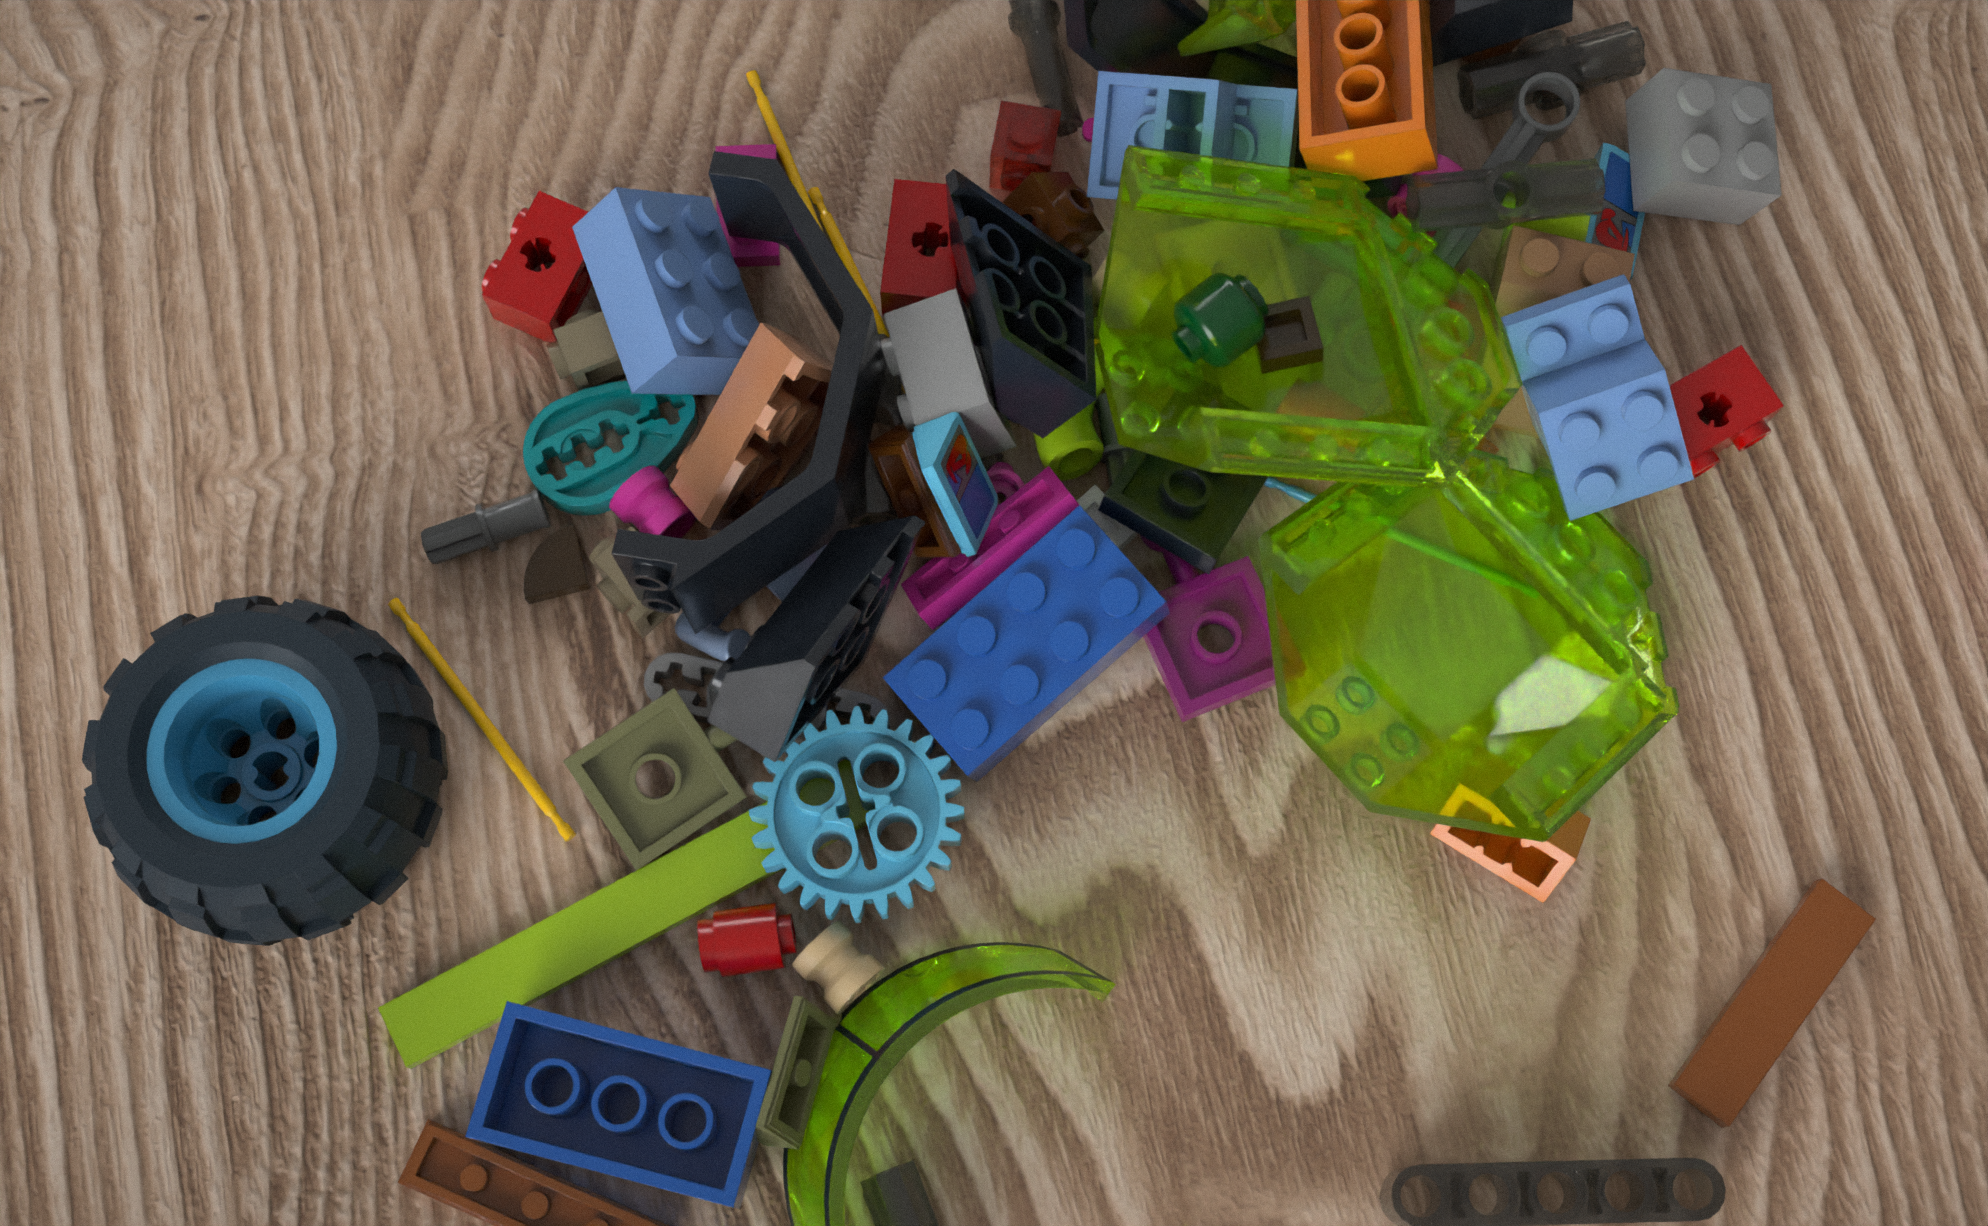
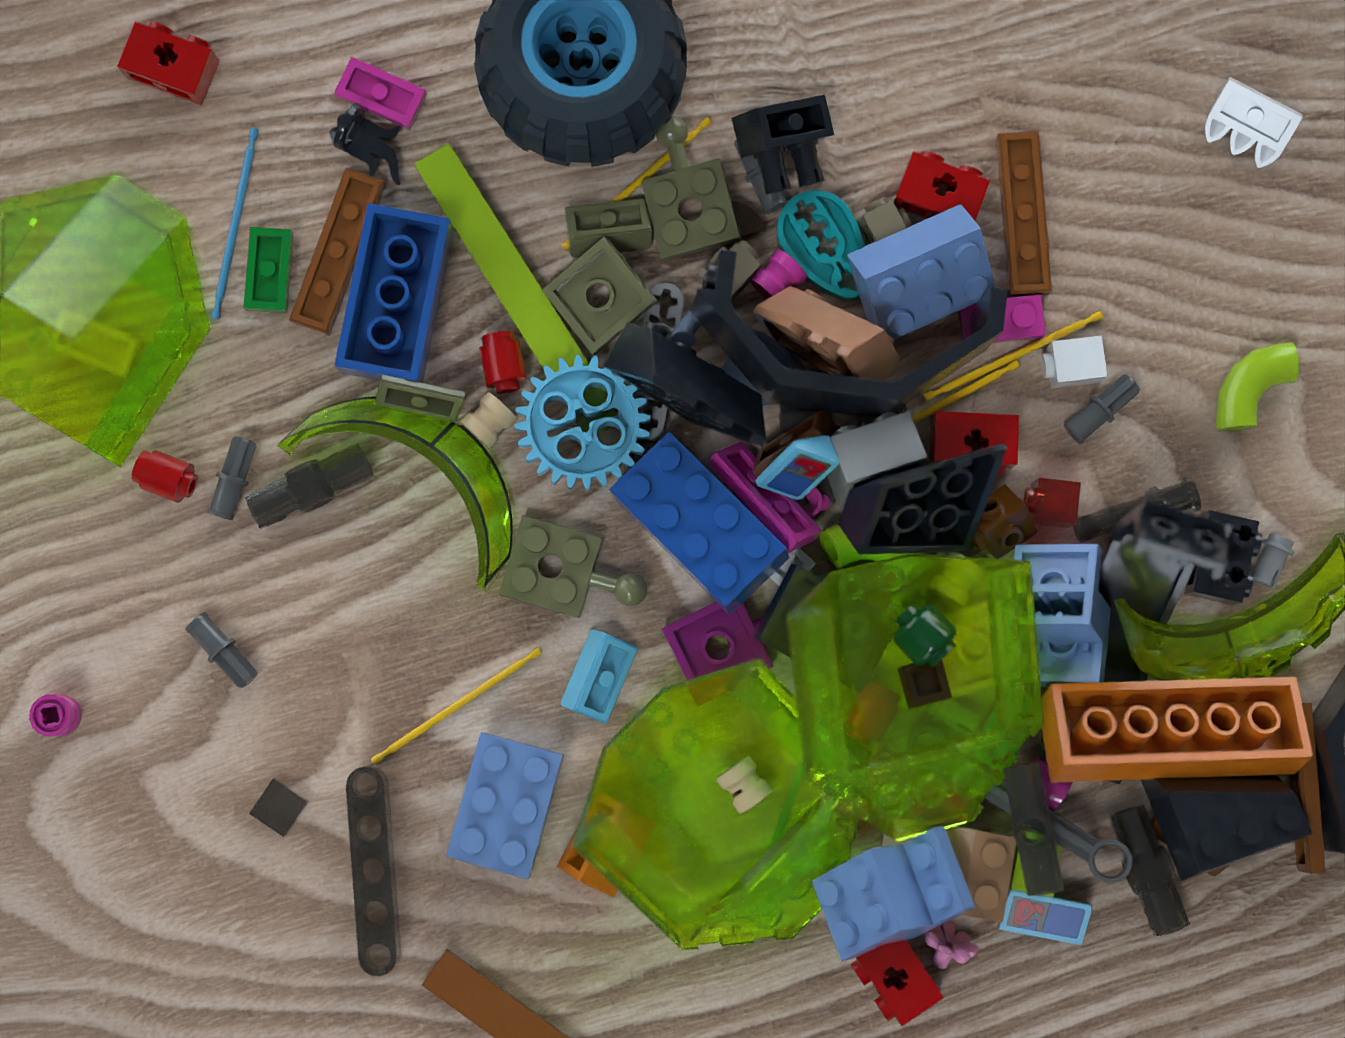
camera: 85 degrees right, 10 degrees up
(279, 1117) = (380, 93): none -> dark pink plate
(353, 1151) = (362, 139): none -> black piece
(425, 473) = (782, 126): none -> black brick
(490, 614) = (671, 190): none -> olive plate
(538, 783) = (621, 222): none -> olive slope
(589, 162) = (1023, 213): none -> dark orange tile
(820, 105) = (1074, 362): none -> white brick
(890, 79) = (1102, 408): none -> dark grey axle
(1067, 840) = (569, 589): none -> olive plate
(1249, 824) = (598, 675): none -> medium azure slope
(1290, 1052) = (456, 705): none -> yellow piece
(1426, 607) = (744, 784): none -> tan wheel
(1452, 973) = (505, 805): none -> medium blue brick
(1665, 335) = (949, 945): none -> bright pink plant
(1702, 147) = (1093, 974): light grey brick -> none

